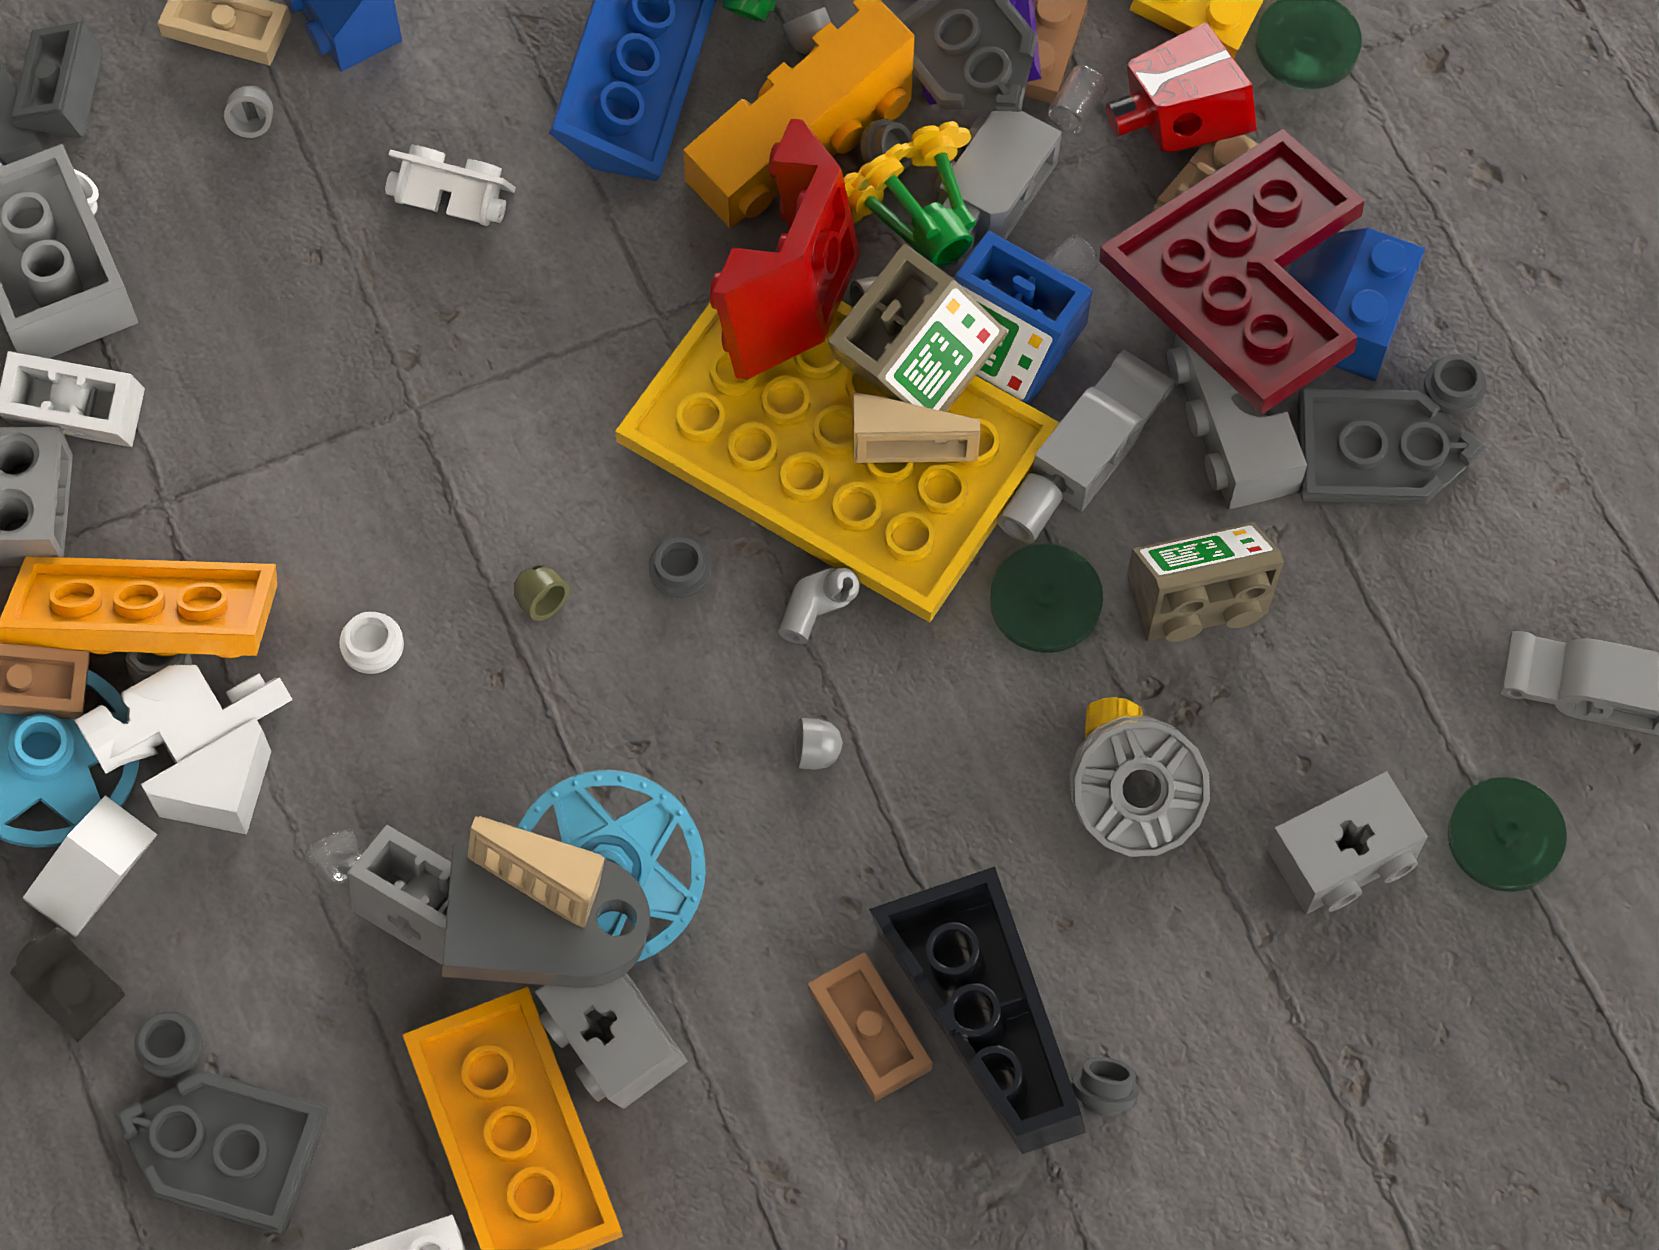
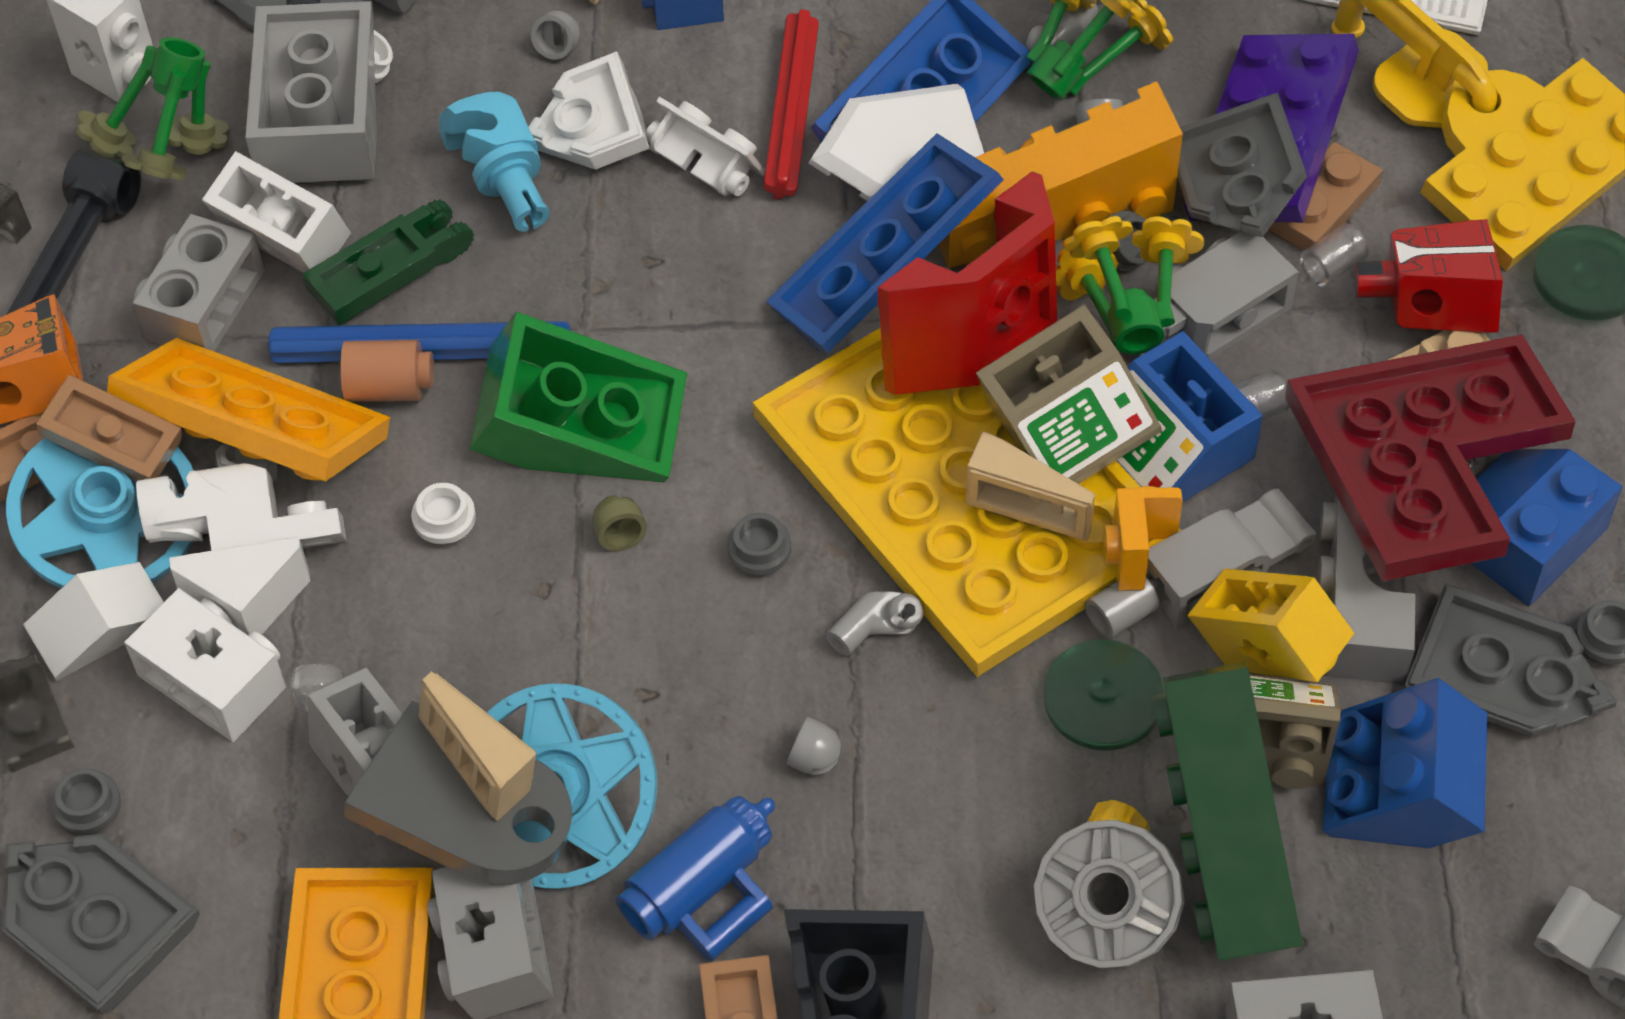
camera: 25 degrees right, 10 degrees down
(193, 407) = (387, 260): none -> dark green hinge
(242, 895) = (207, 663): none -> white brick
(251, 519) = (385, 370): none -> nougat brick
(259, 254) = (506, 156): none -> medium azure piece
(264, 477) = (445, 340): none -> blue axle
(325, 188) = (592, 116): none -> white plate
(448, 491) = (576, 405): none -> green slope
(511, 110) = (791, 105): none -> red axle
(640, 120) = (884, 131): none -> white tile
(674, 231) = (880, 239): none -> blue slope
(763, 897) = (695, 870): none -> blue piece
(1018, 439) = (1139, 516): none -> light orange bracket
(1177, 486) = (1272, 623): none -> yellow brick
(1219, 675) = (1231, 812): none -> dark green brick
(1341, 575) = (1408, 769): none -> blue slope

